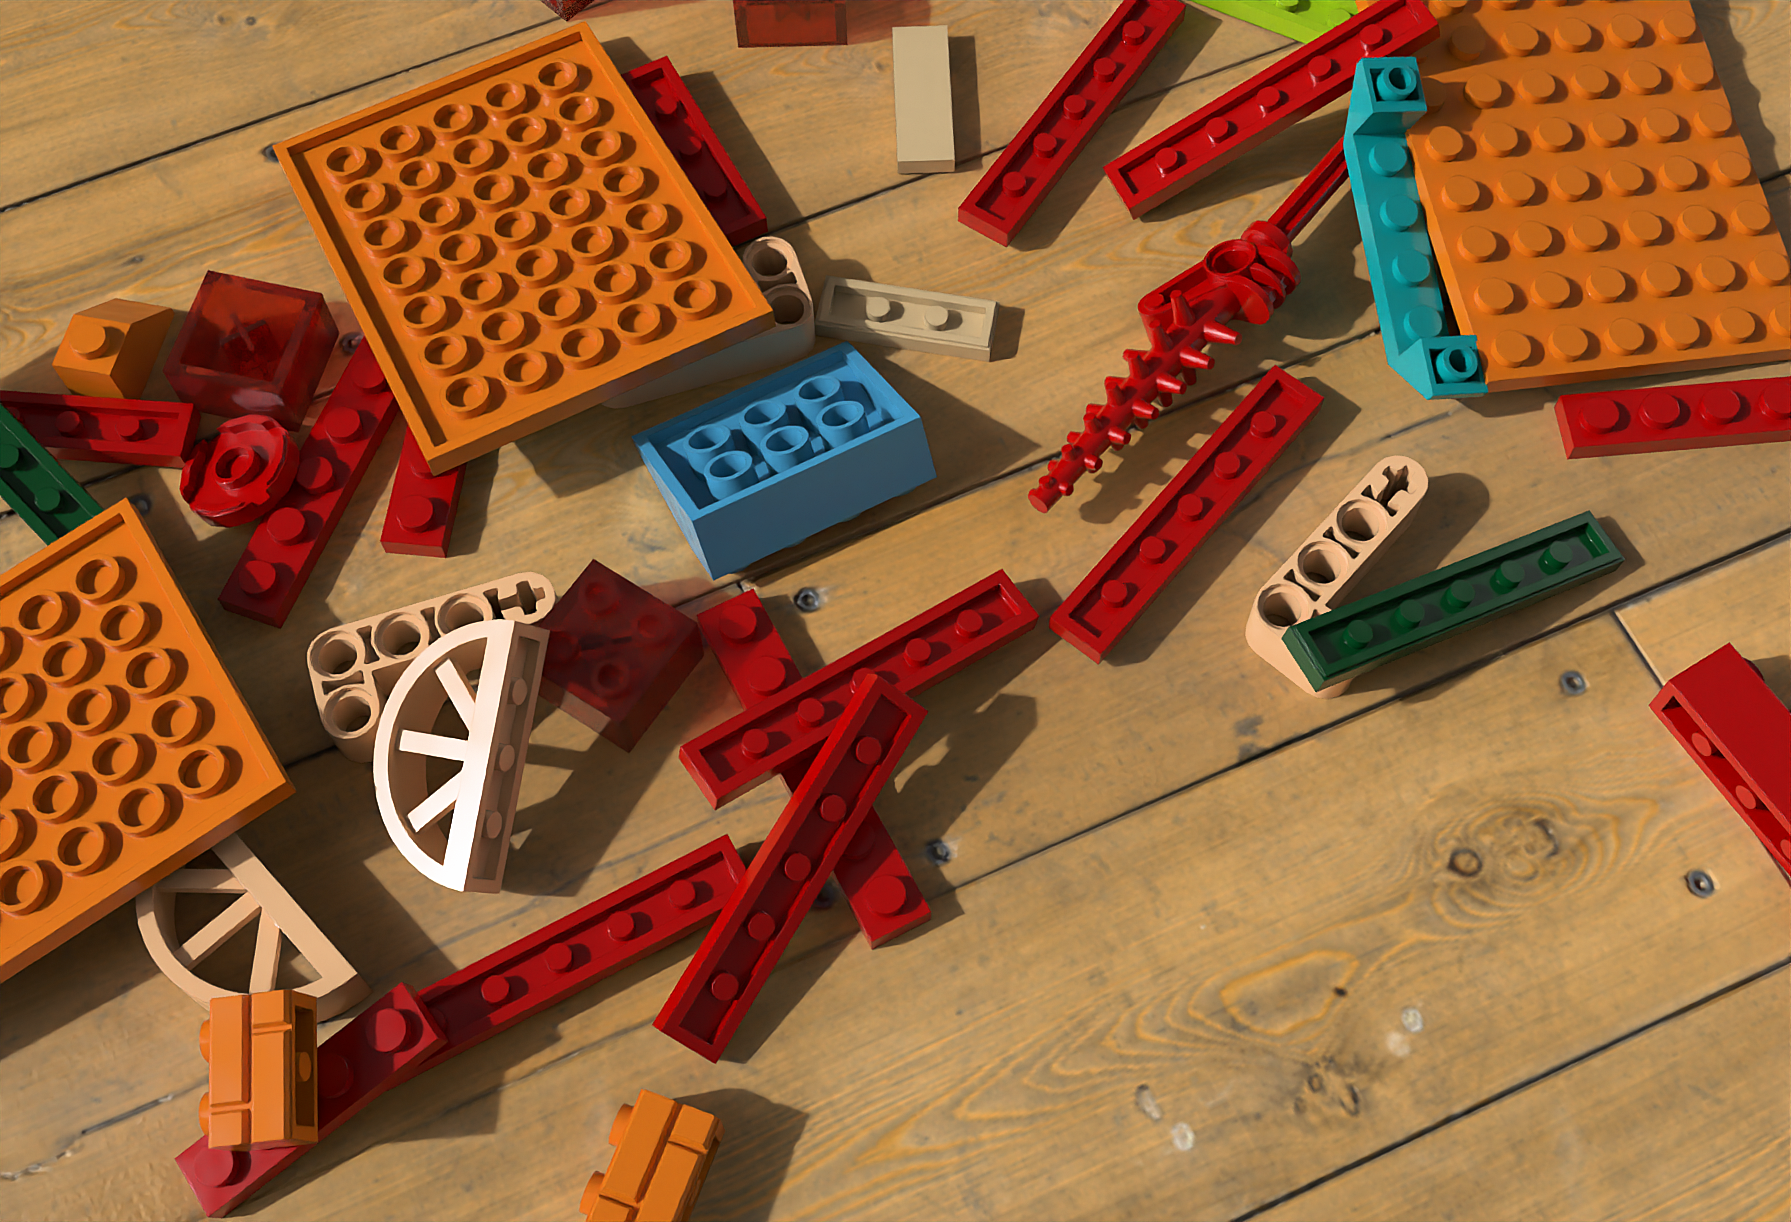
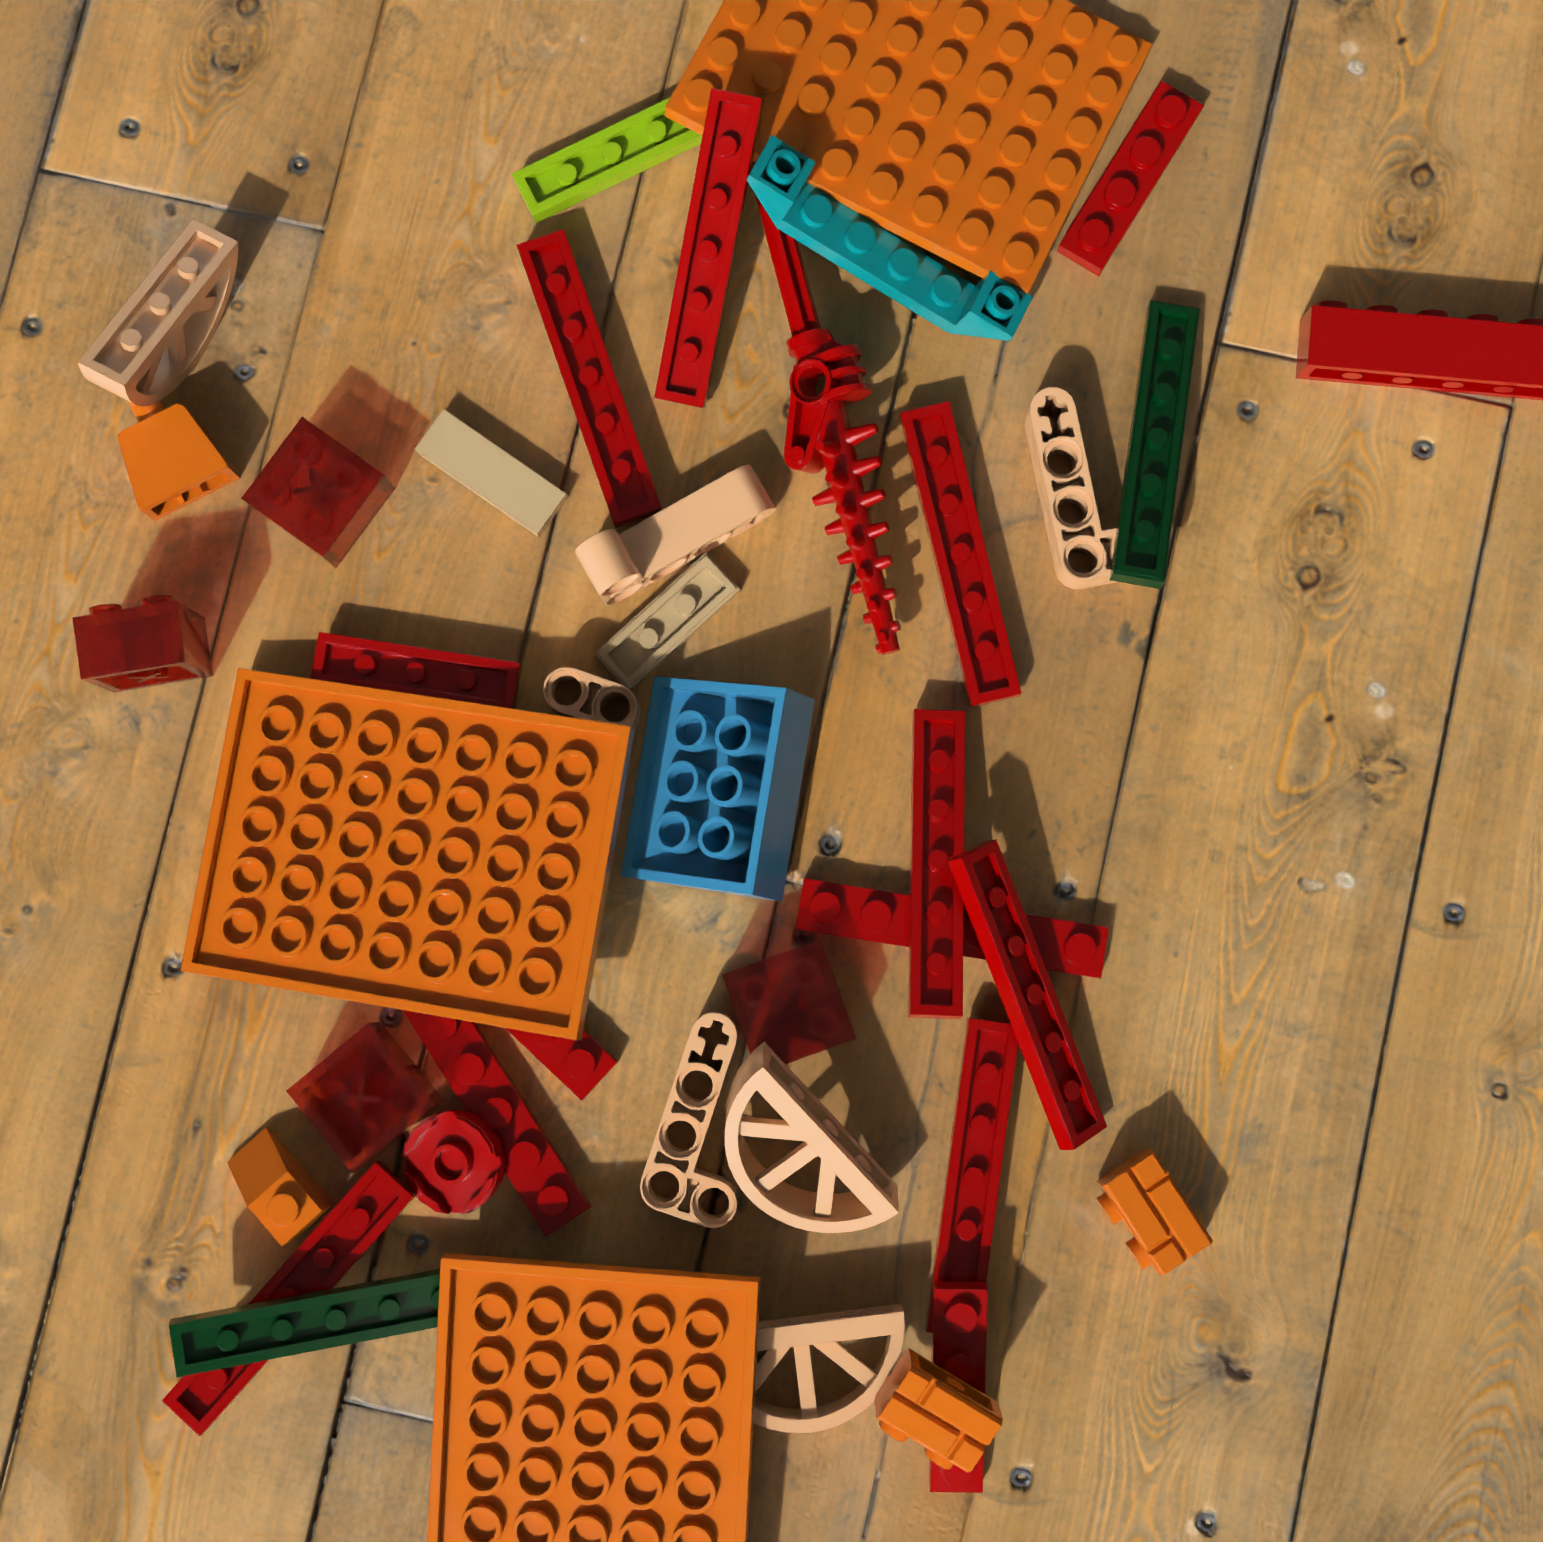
camera: 50 degrees left, 20 degrees up
(984, 261) = (674, 536): none -> light nougat beam

